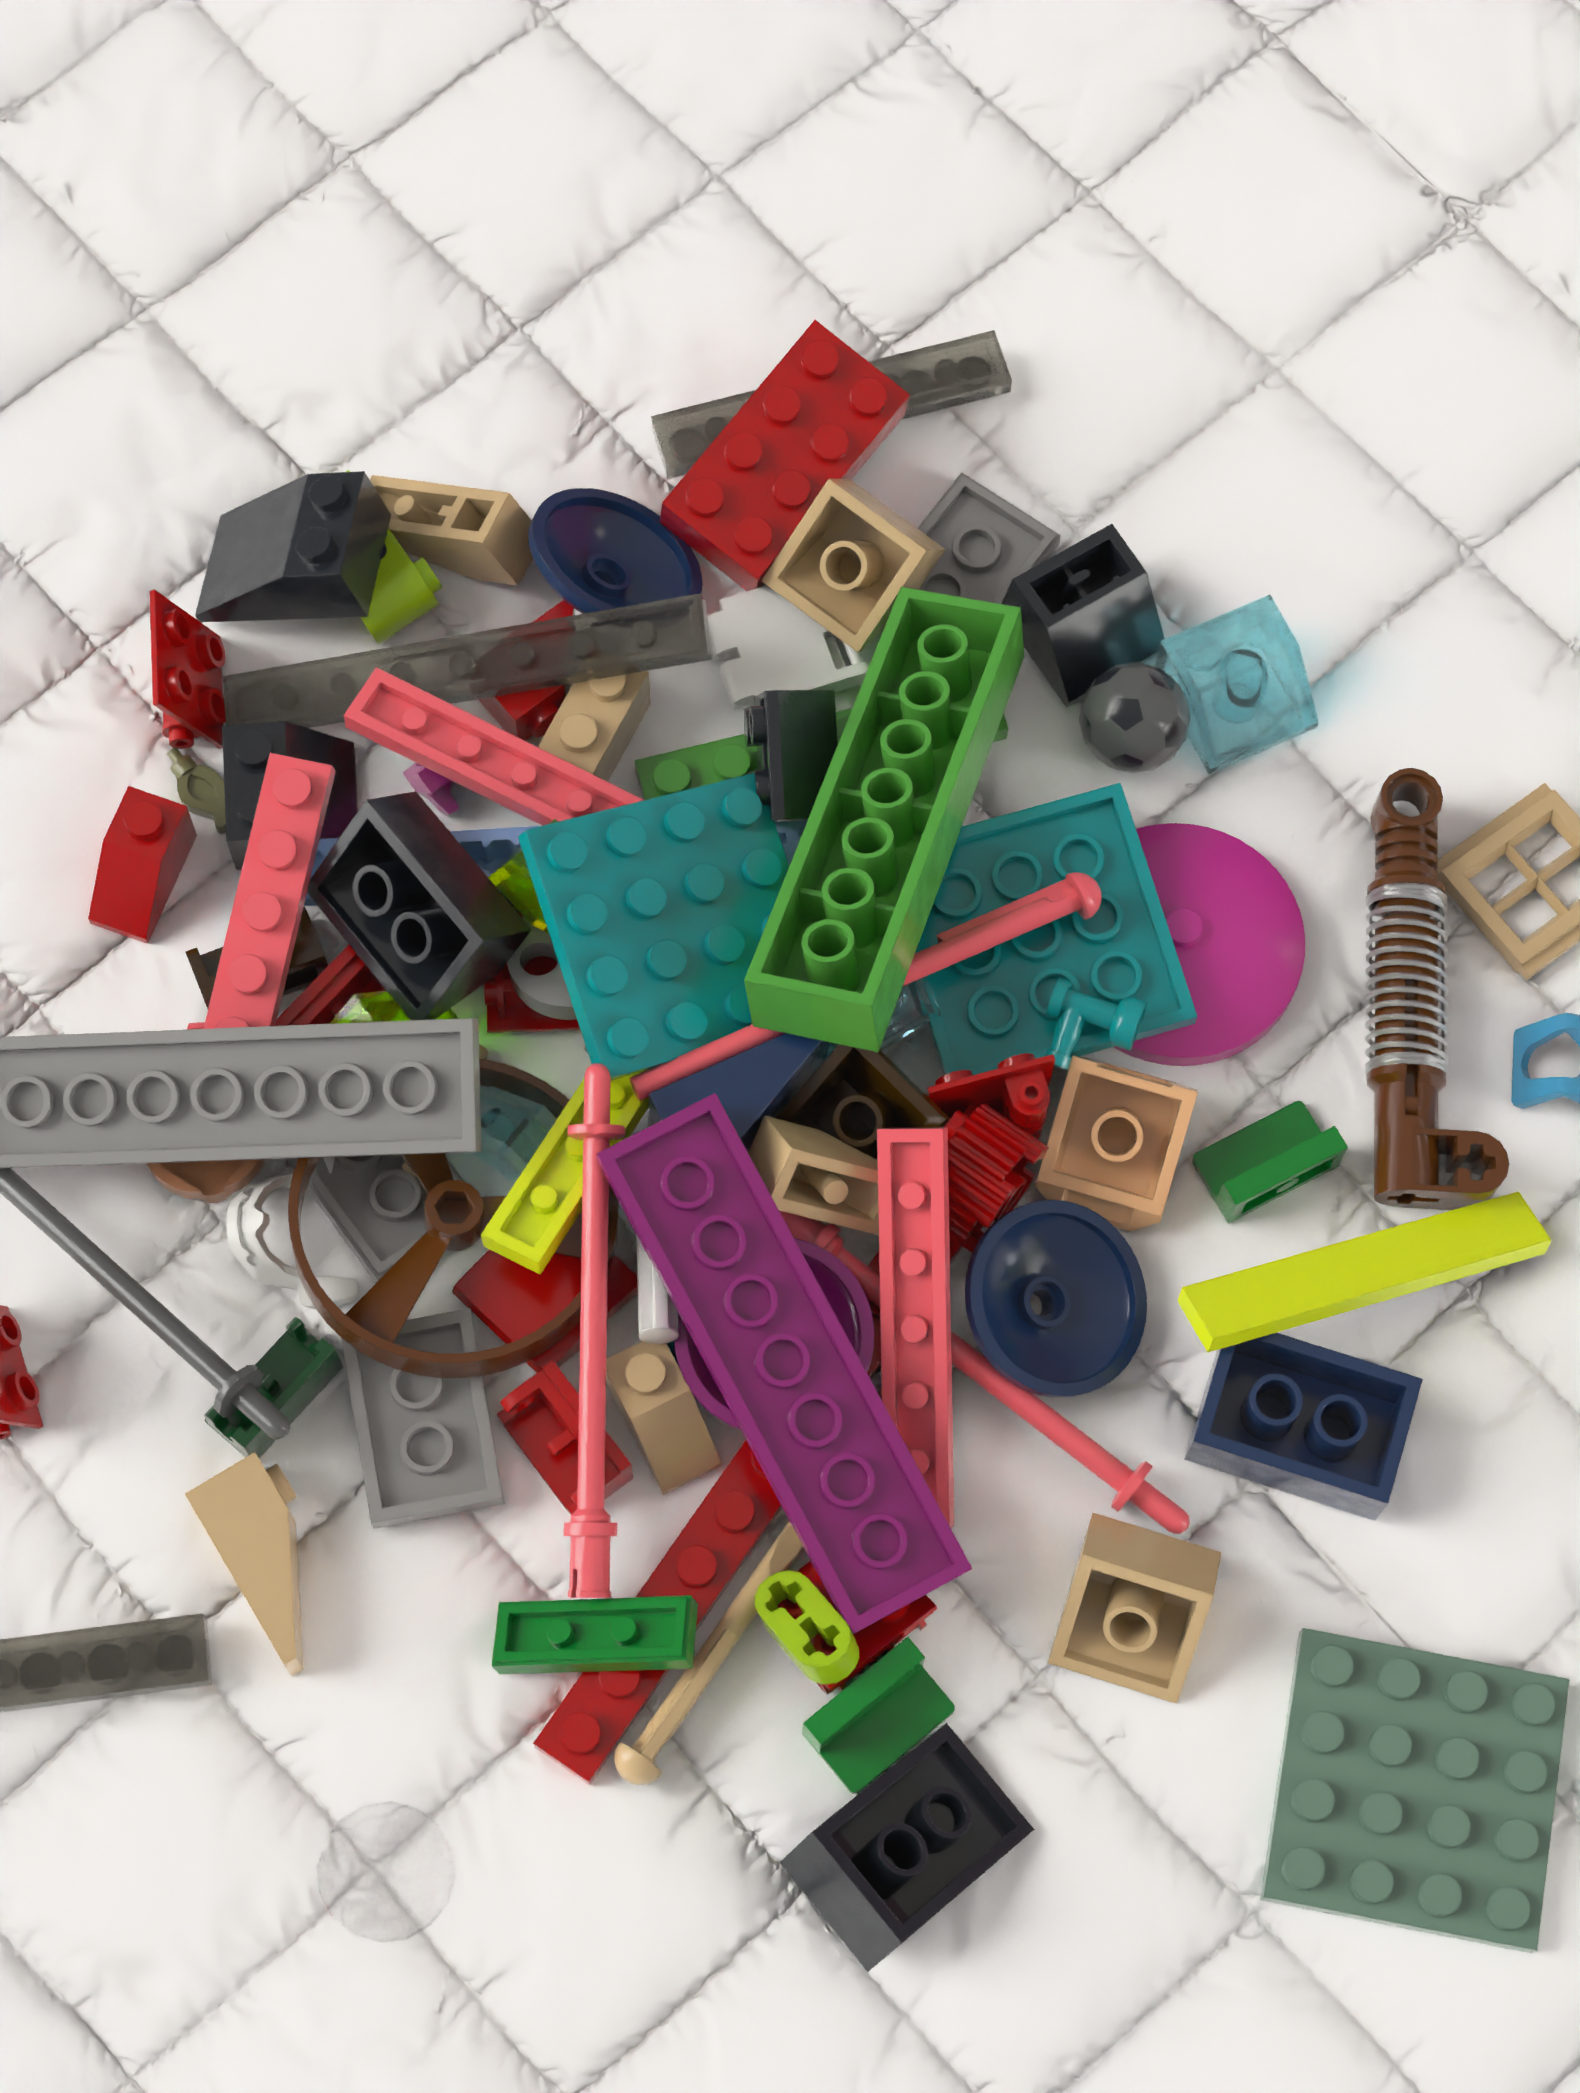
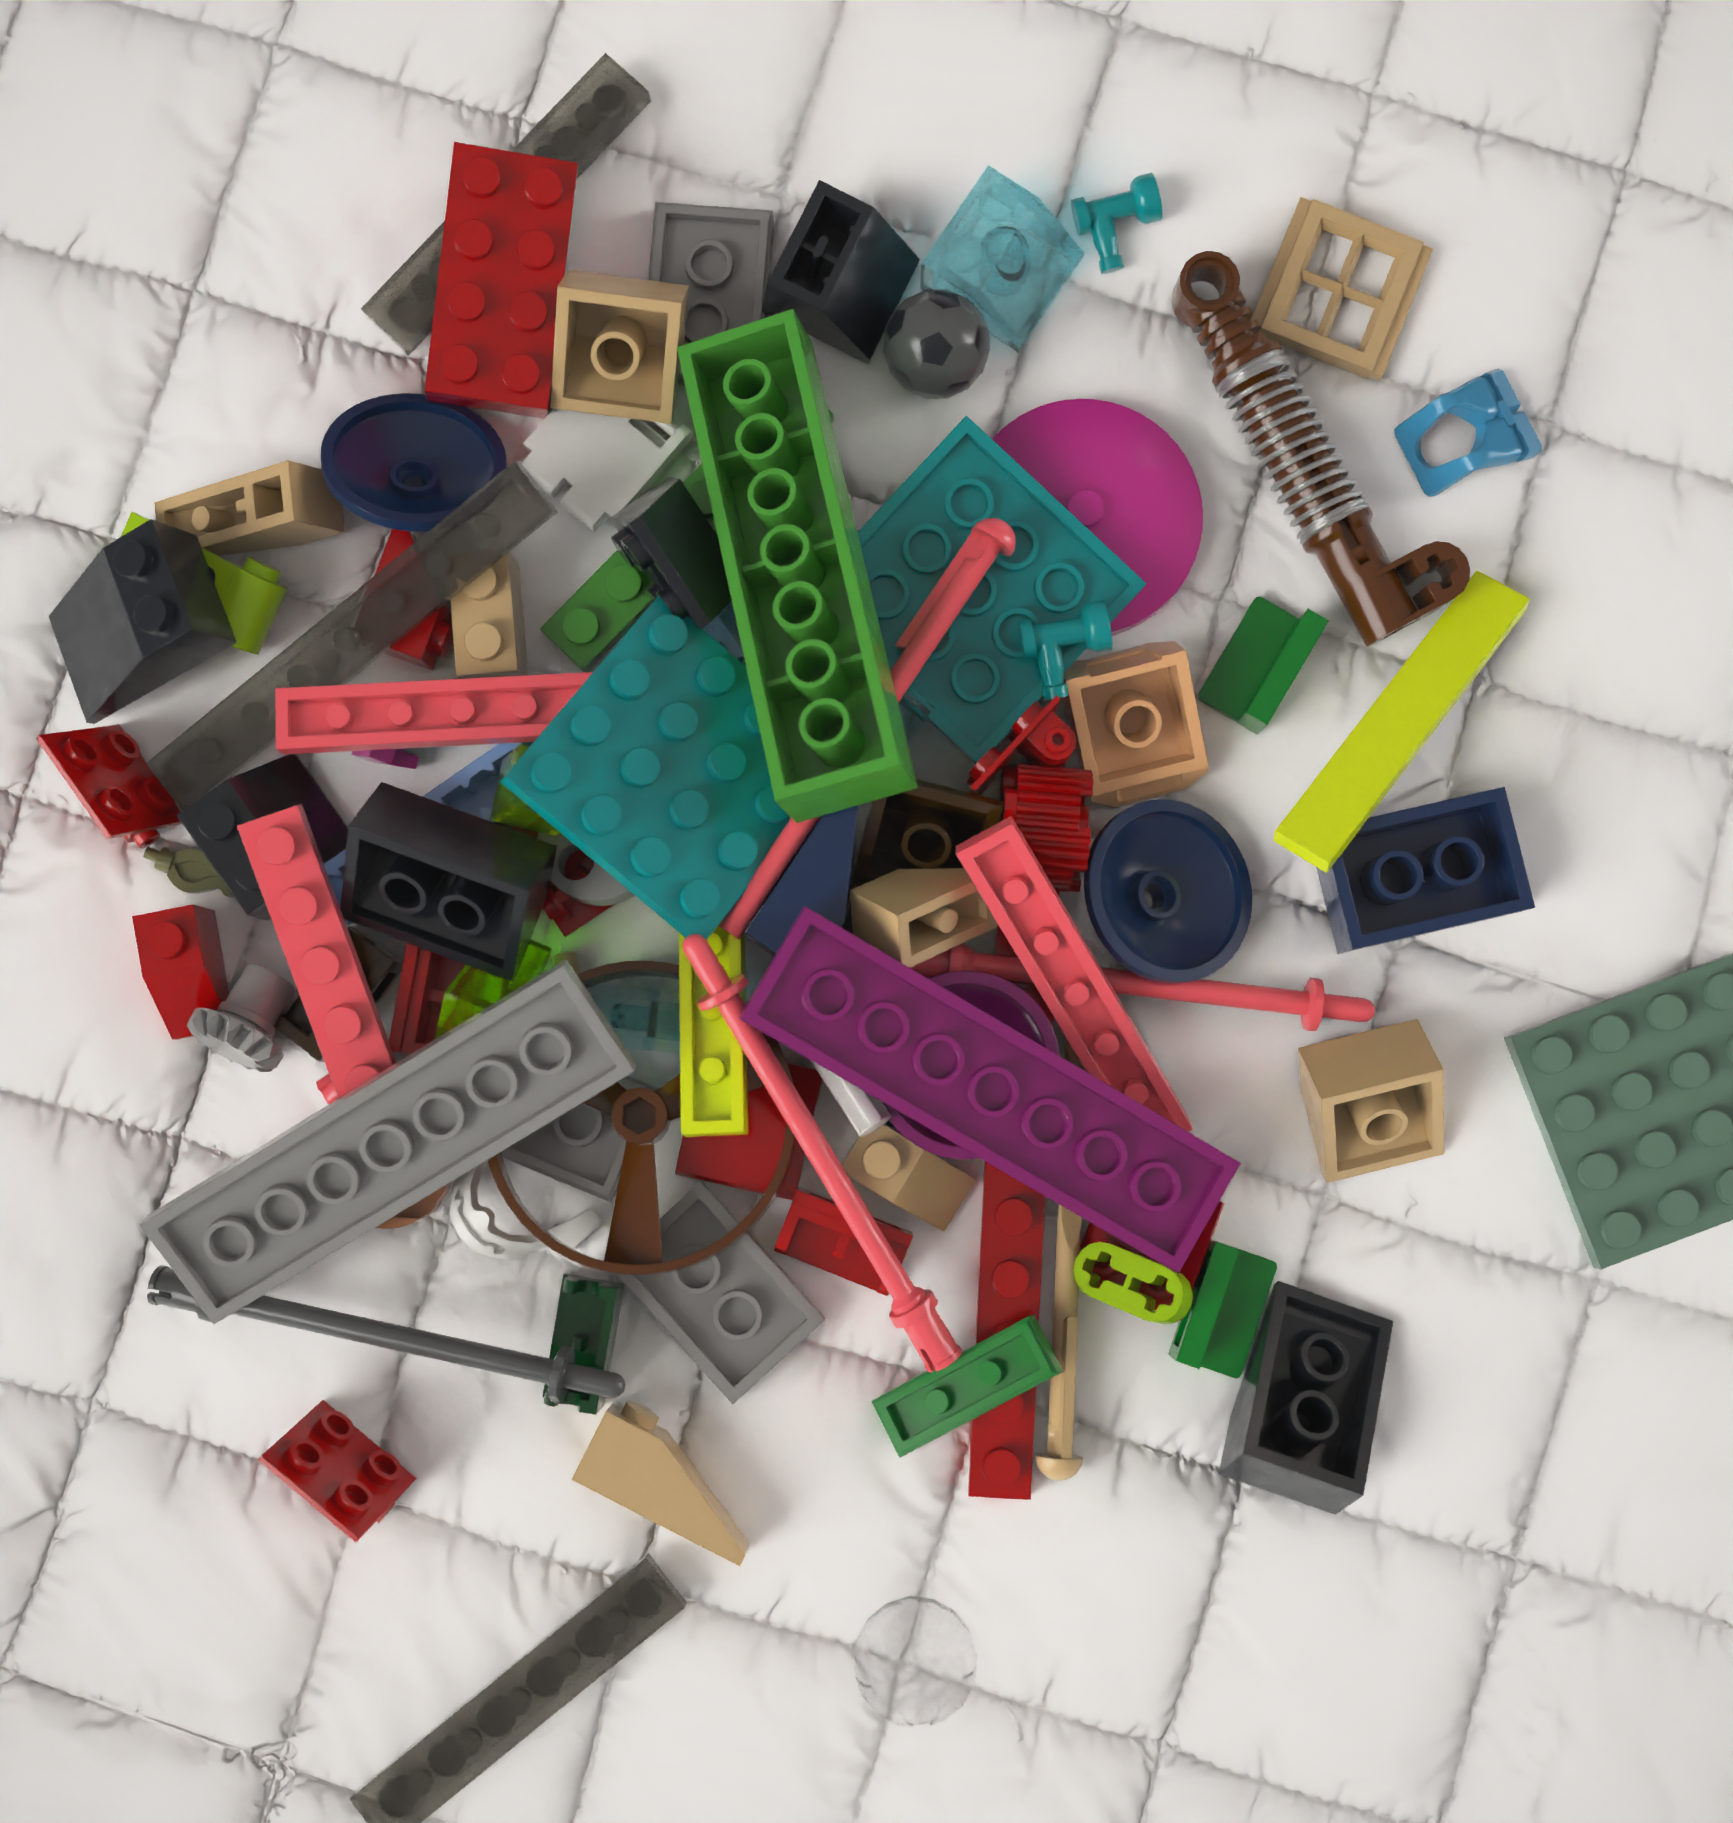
camera: 25 degrees left, 15 degrees up
(158, 935) = (246, 1020): none -> light grey gear
(1350, 697) = (1098, 216): none -> teal piece

